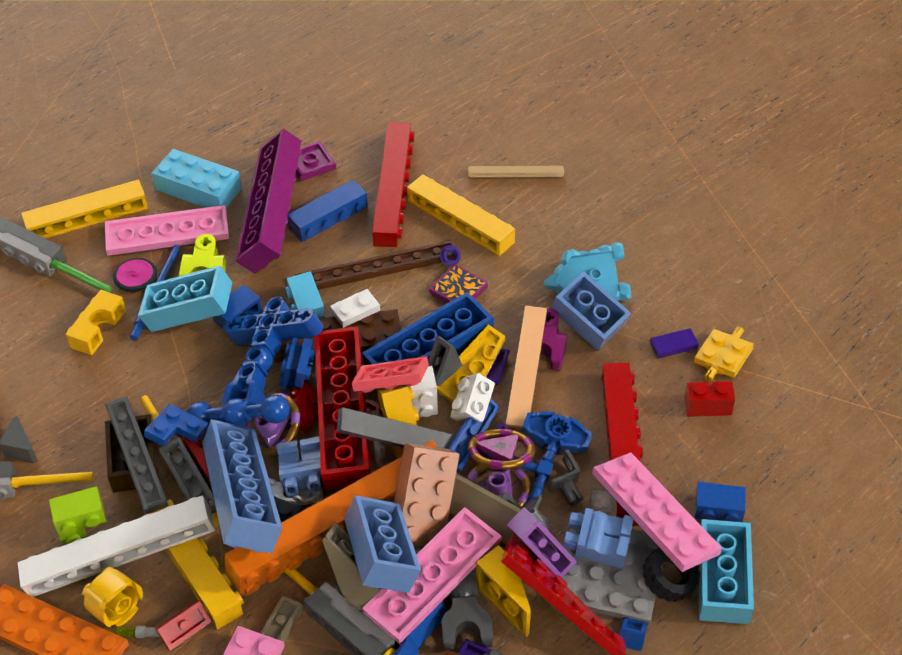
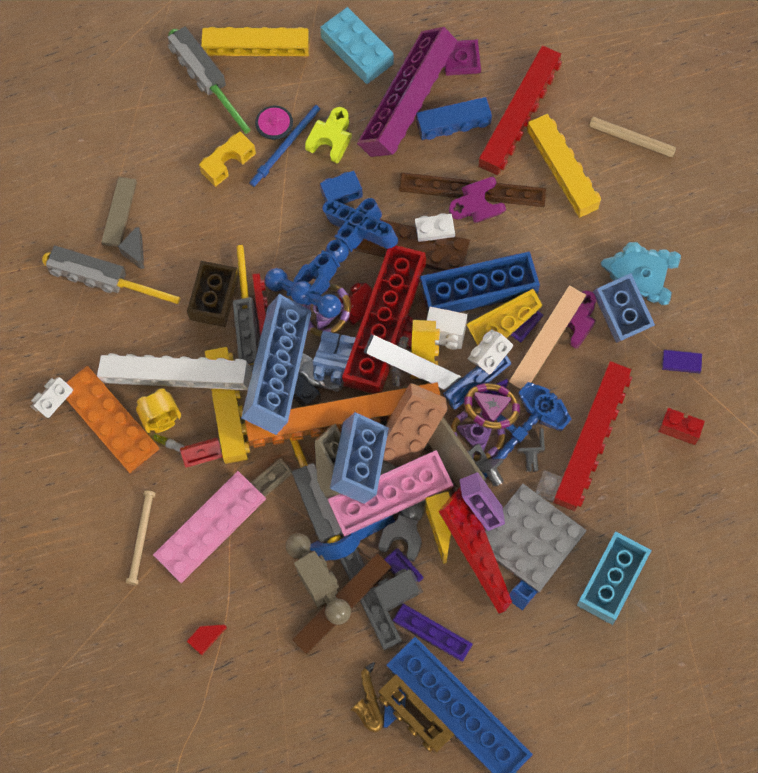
camera: 25 degrees right, 20 degrees up
(76, 512) = (154, 334): lime brick -> none
(136, 455) = (213, 300): dark grey tile -> none
(165, 230) = (314, 87): bright pink plate -> none
(173, 421) = (252, 281): blue plate -> none
(185, 299) = (302, 169): medium azure brick -> none
(290, 365) = (361, 263): blue piece -> none
(304, 293) = (398, 200): medium azure brick -> none
(305, 365) = (371, 269): blue plate -> none
(387, 273) = (474, 202): none -> magenta piece
(390, 374) = (428, 313): coral plate -> none
(443, 360) = (479, 310): dark grey slope -> none
(456, 255) = (535, 210): dark purple plate -> none
(456, 283) = (530, 236): tile -> none
(601, 537) = (532, 512): medium blue hips -> none
(657, 512) = (582, 511): bright pink plate -> none
(660, 585) = (587, 562): black tyre -> none
(719, 502) = (641, 519): blue brick -> none
(723, 353) = (717, 388): yellow plate -> none

